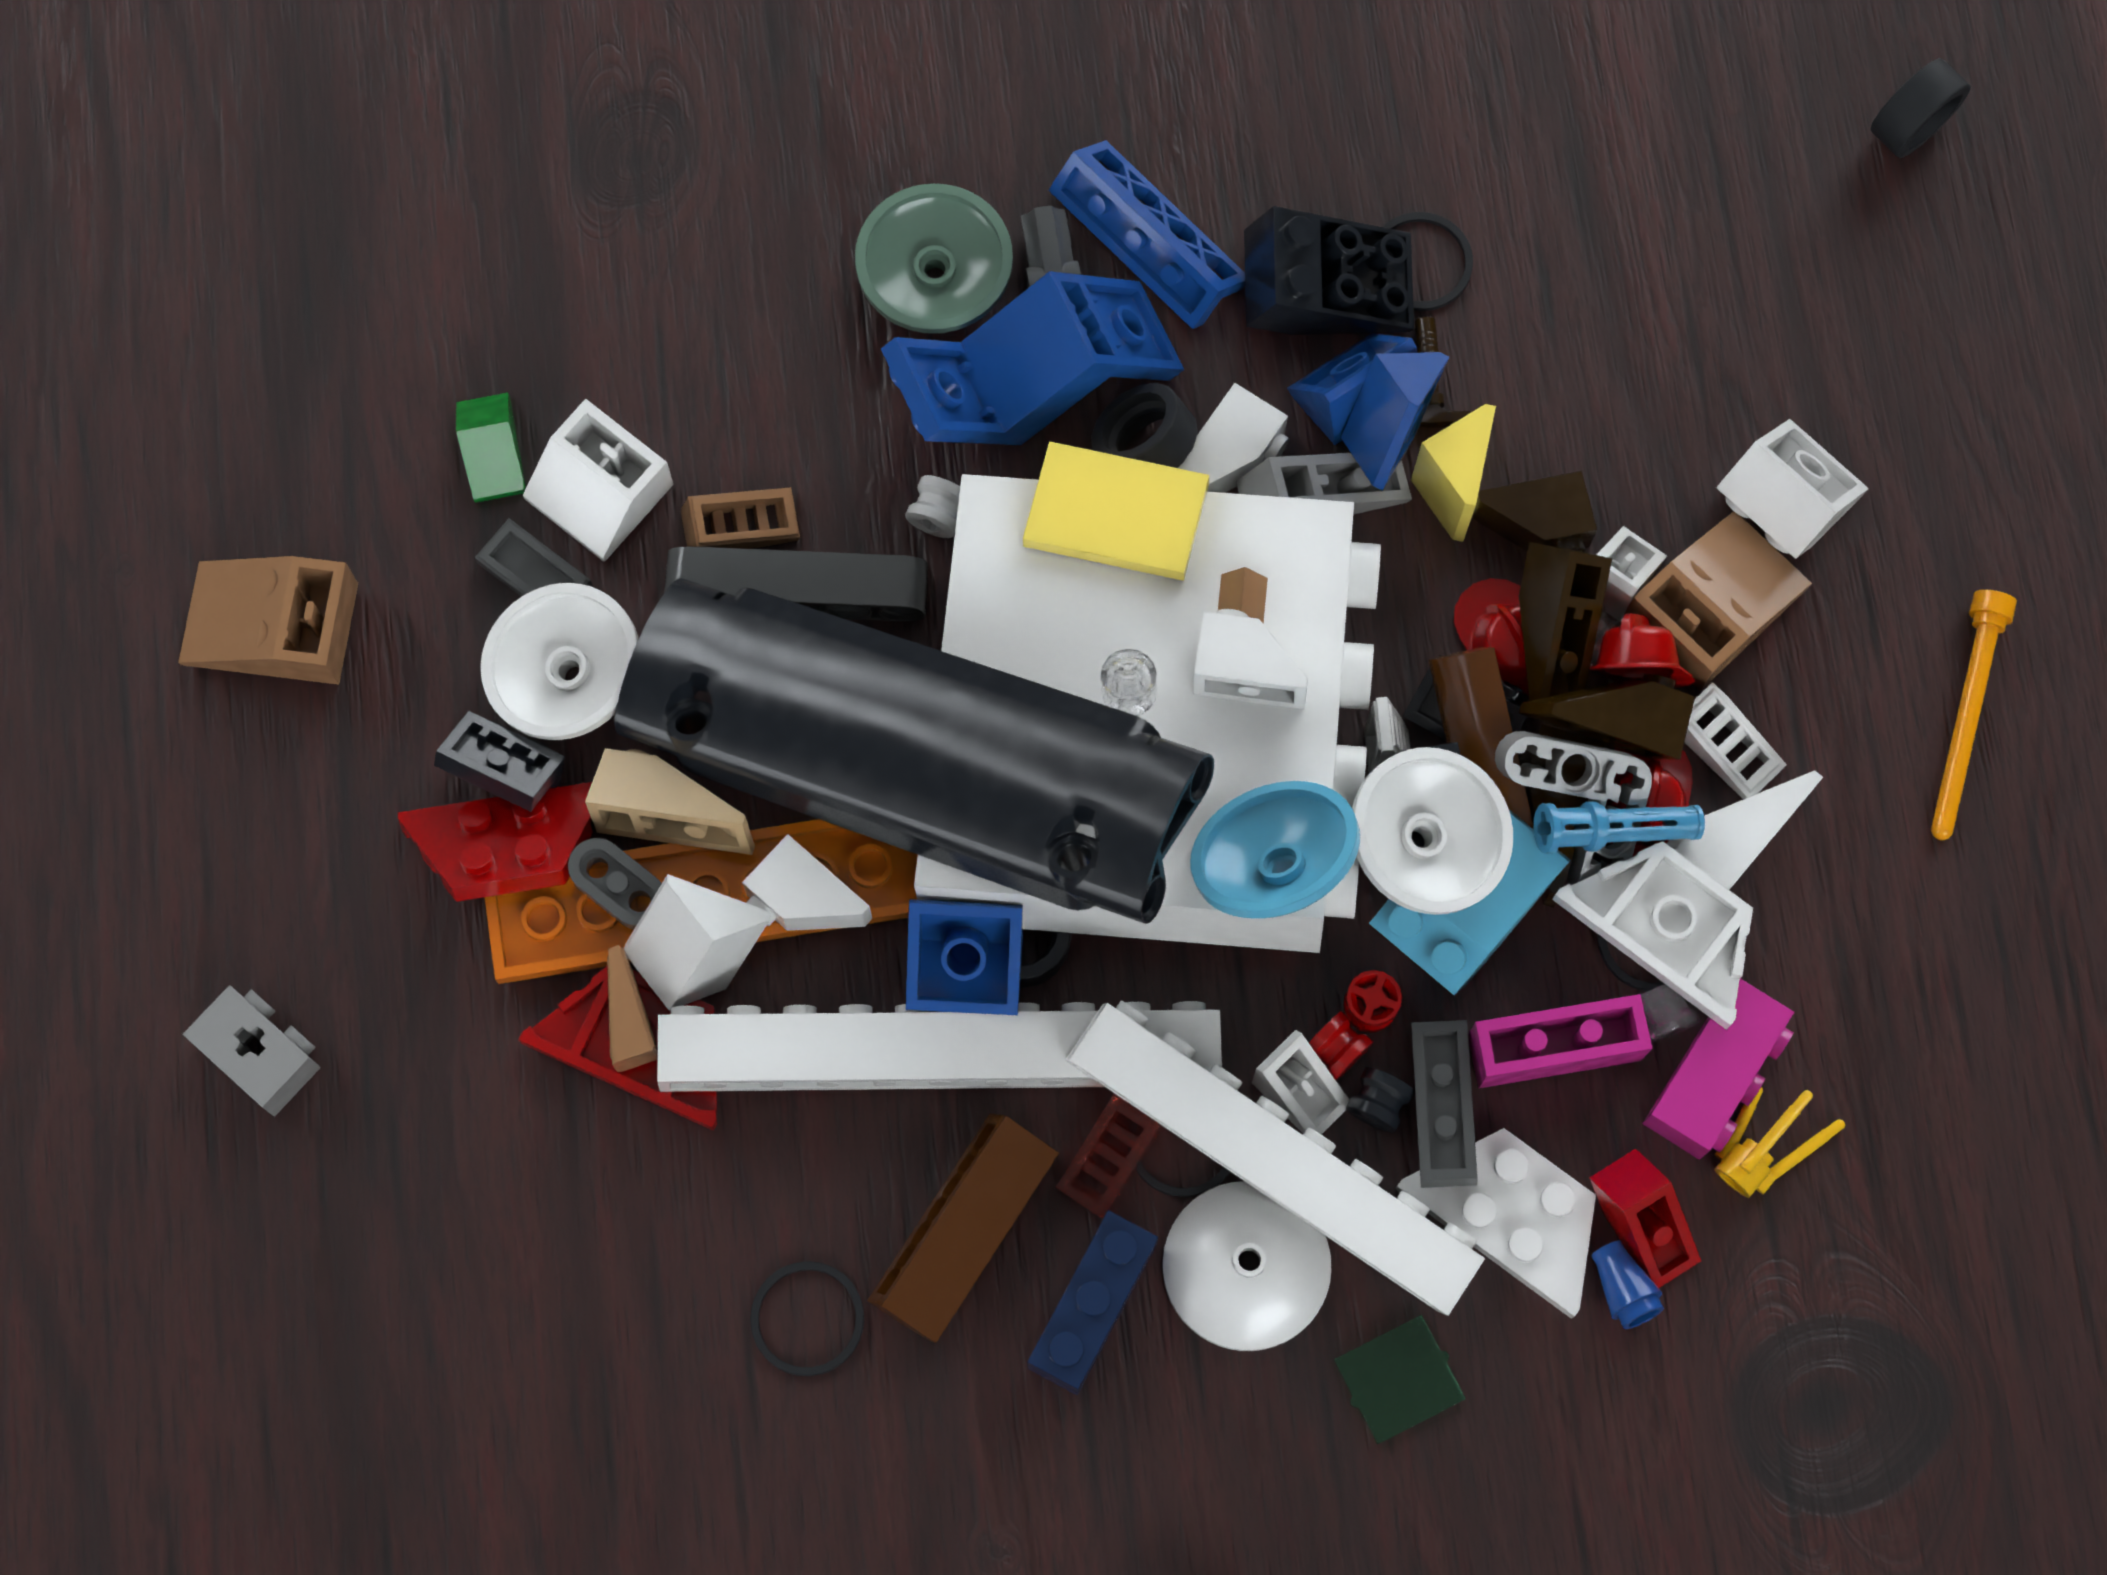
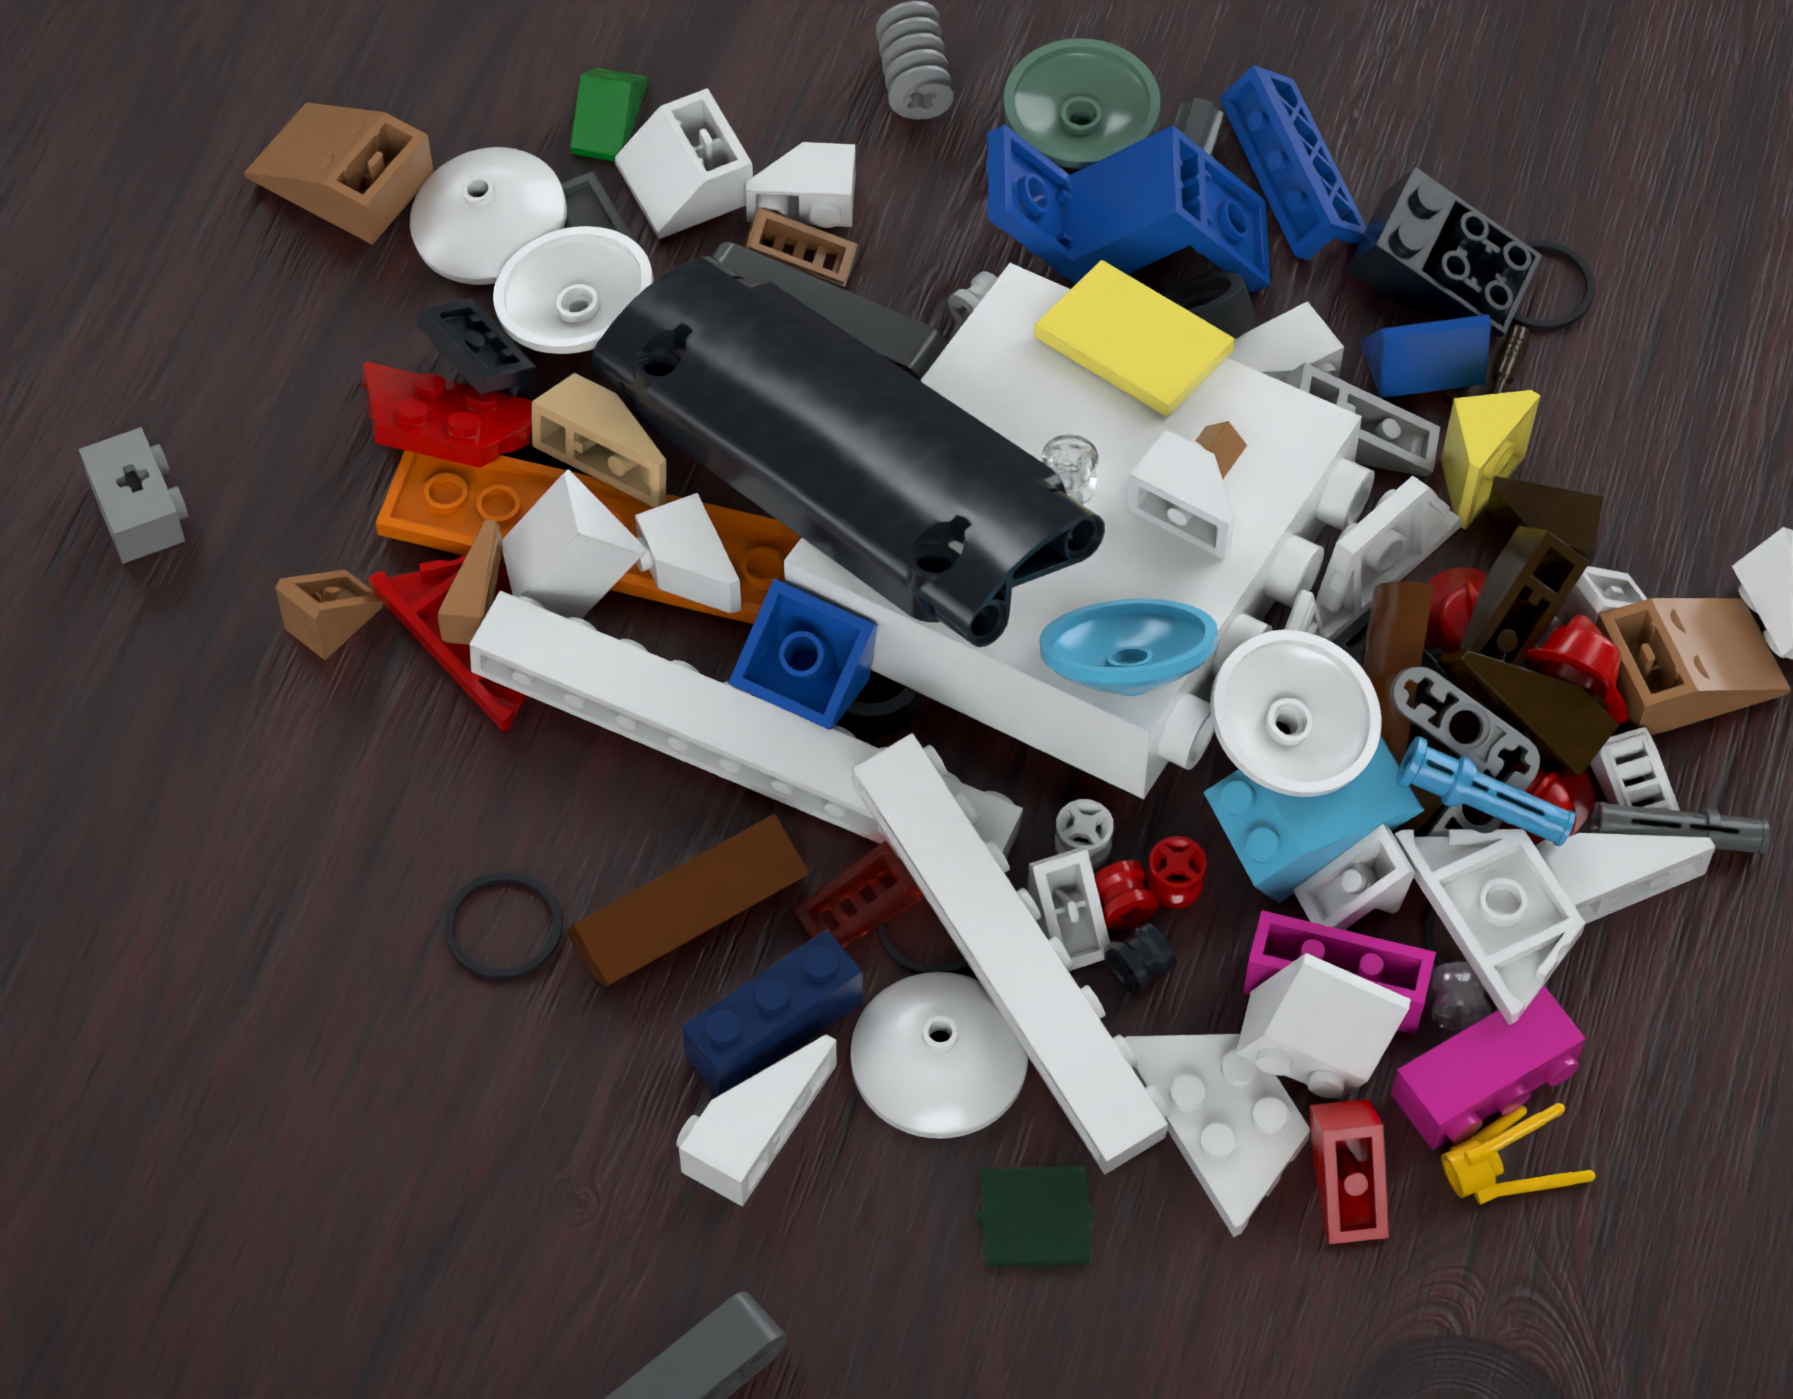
camera: 25 degrees right, 15 degrees down
(445, 637) = (476, 236): none -> white dish
(493, 1081) = (325, 608): none -> medium nougat slope
(619, 886) = (522, 488): dark grey plate -> none
(720, 450) = (807, 185): none -> white slope
(751, 277) = (914, 60): none -> light grey piece
(1121, 1420) = (752, 1121): none -> white slope
(1281, 992) = (1085, 820): none -> white wheel
(1391, 410) = (1450, 363): blue slope -> none
(1408, 619) = (1382, 550): none -> white wing
(1444, 1104) = (1199, 984): dark grey plate -> none
(1533, 948) = (1357, 881): none -> white slope
(1571, 1110) = (1320, 1026): none -> white slope
(1627, 1288) = (1300, 1225): blue cone -> none
(1795, 759) = (1740, 835): none -> dark grey pin

